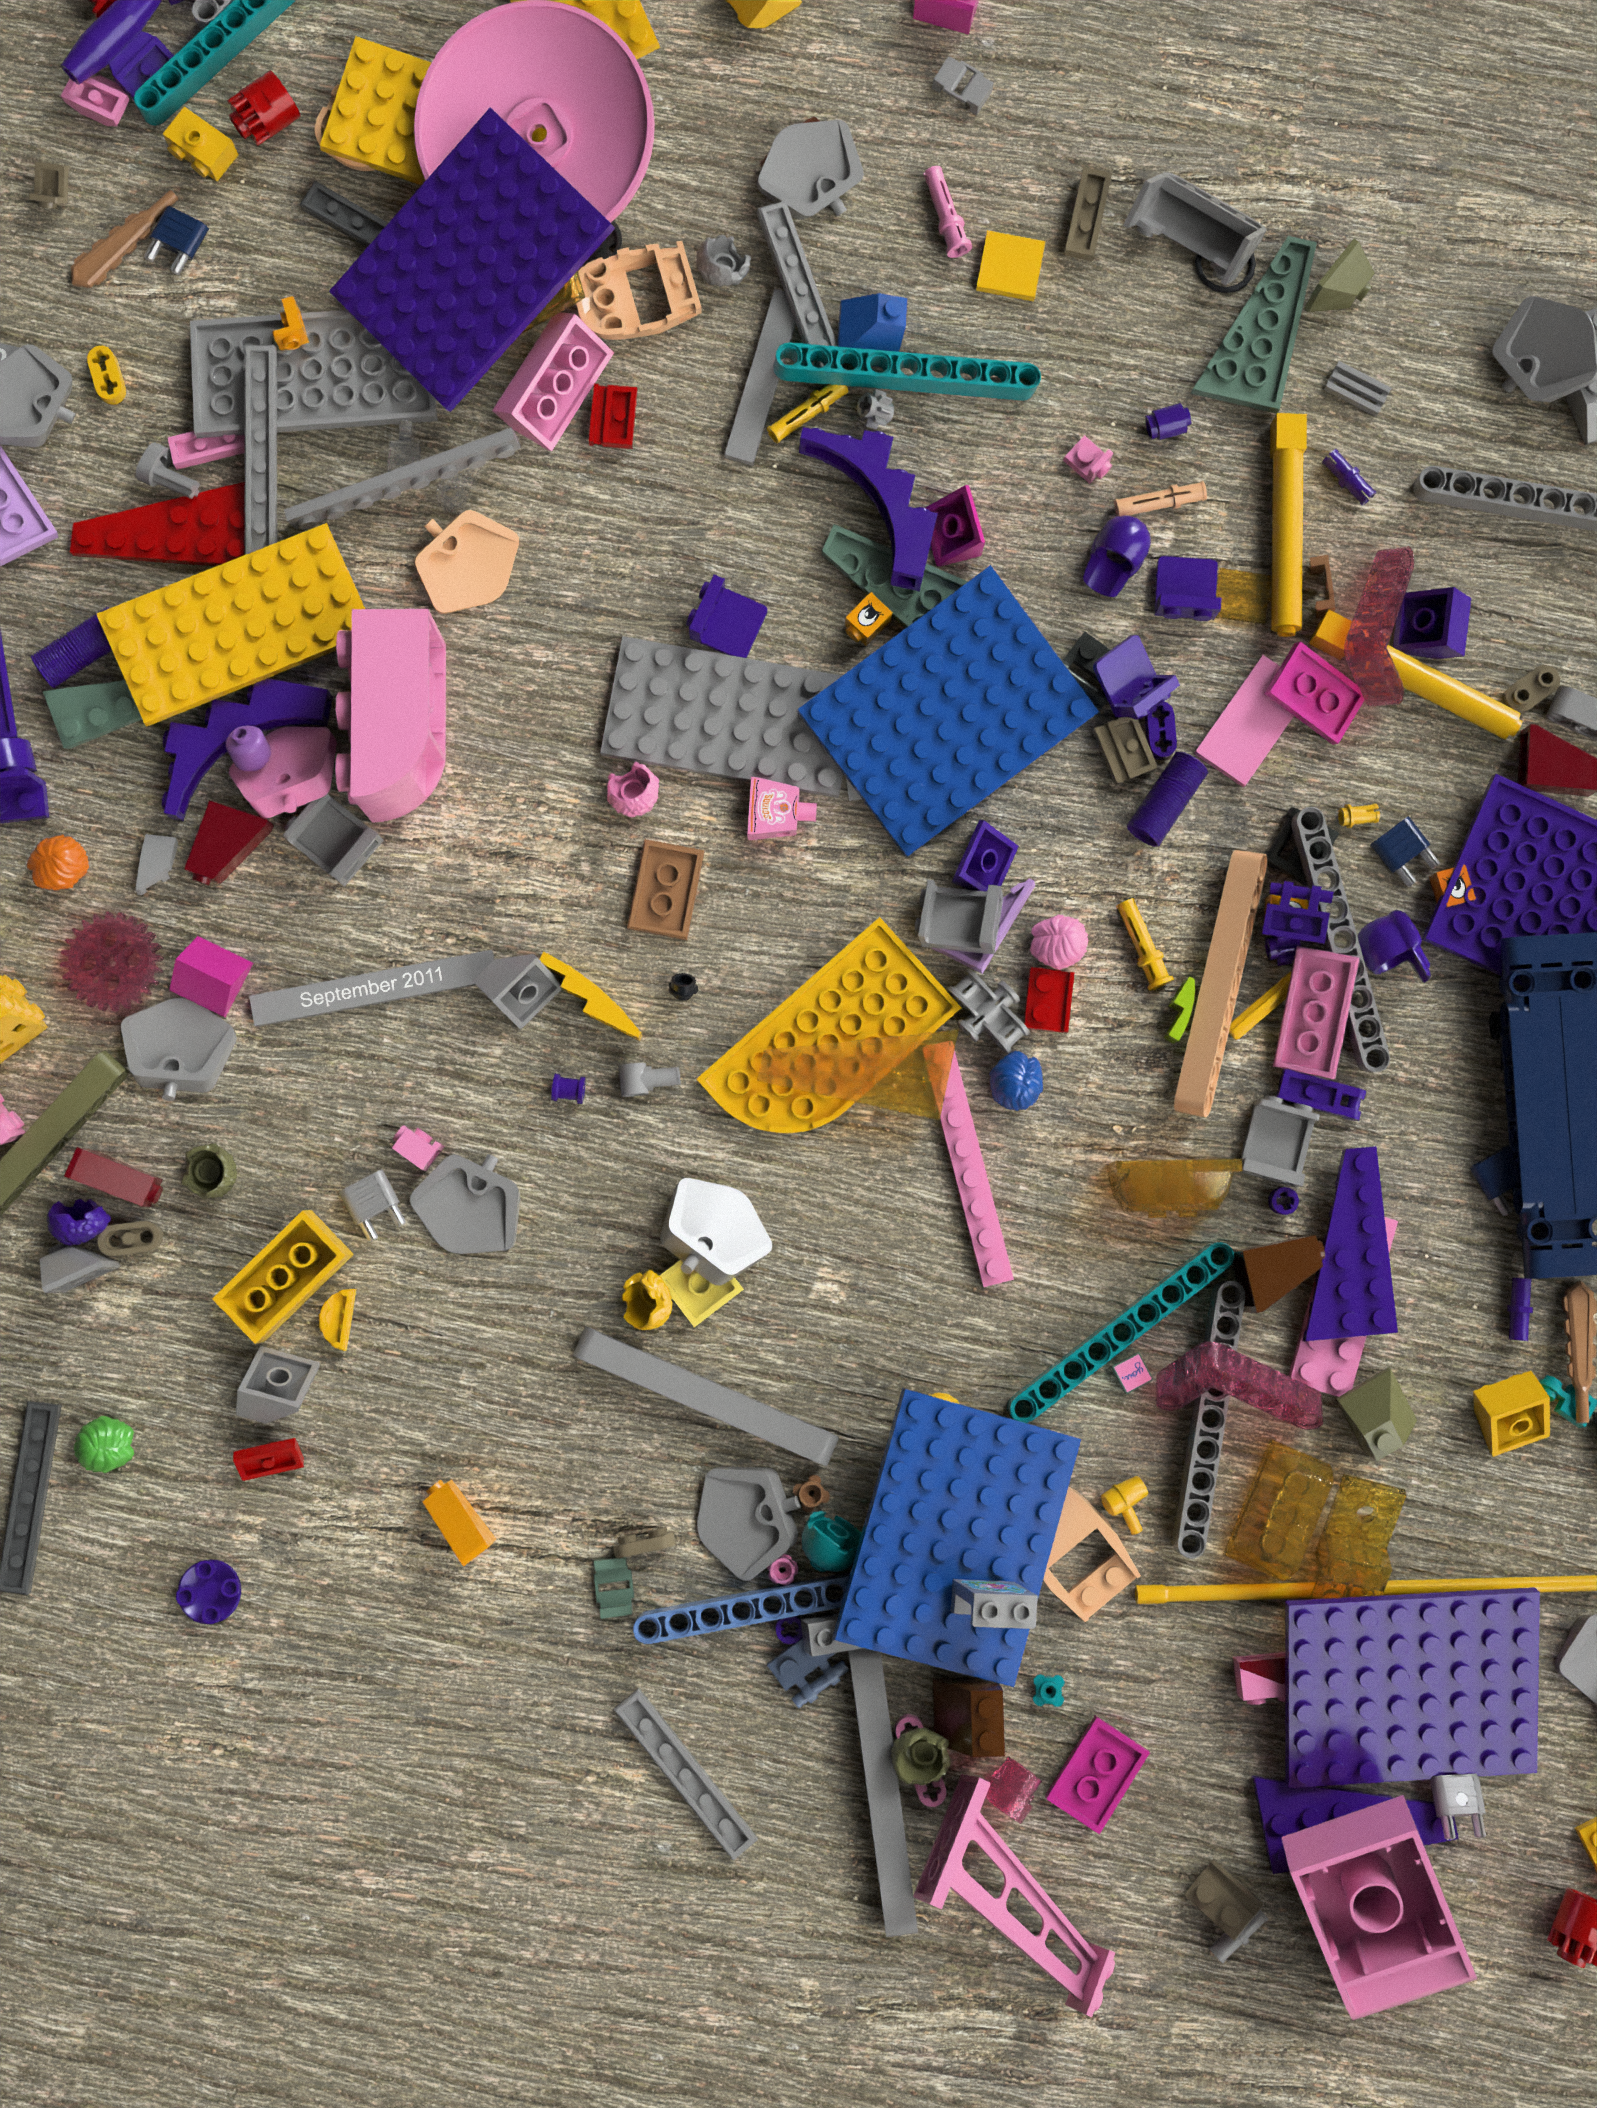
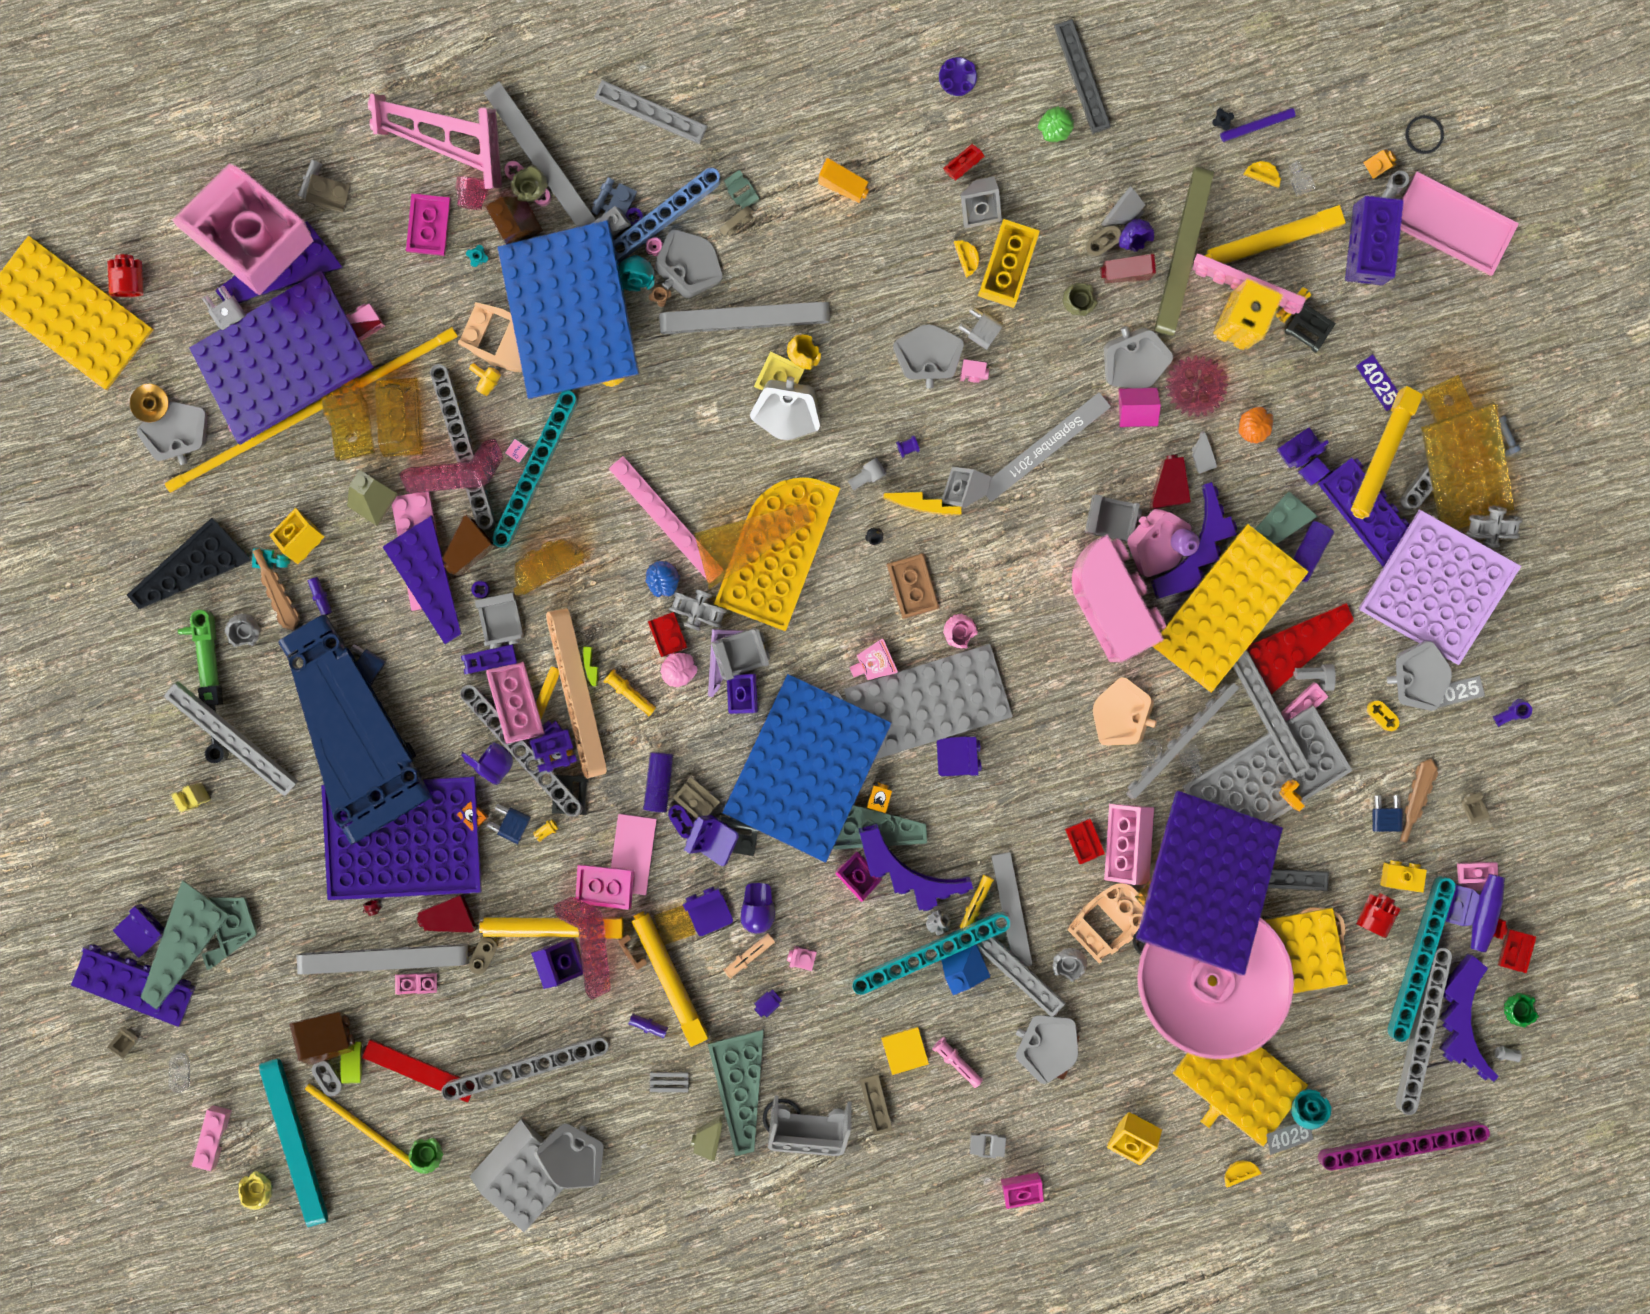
camera: 160 degrees right, 5 degrees up
(994, 1603) = (531, 282): light grey panel -> none

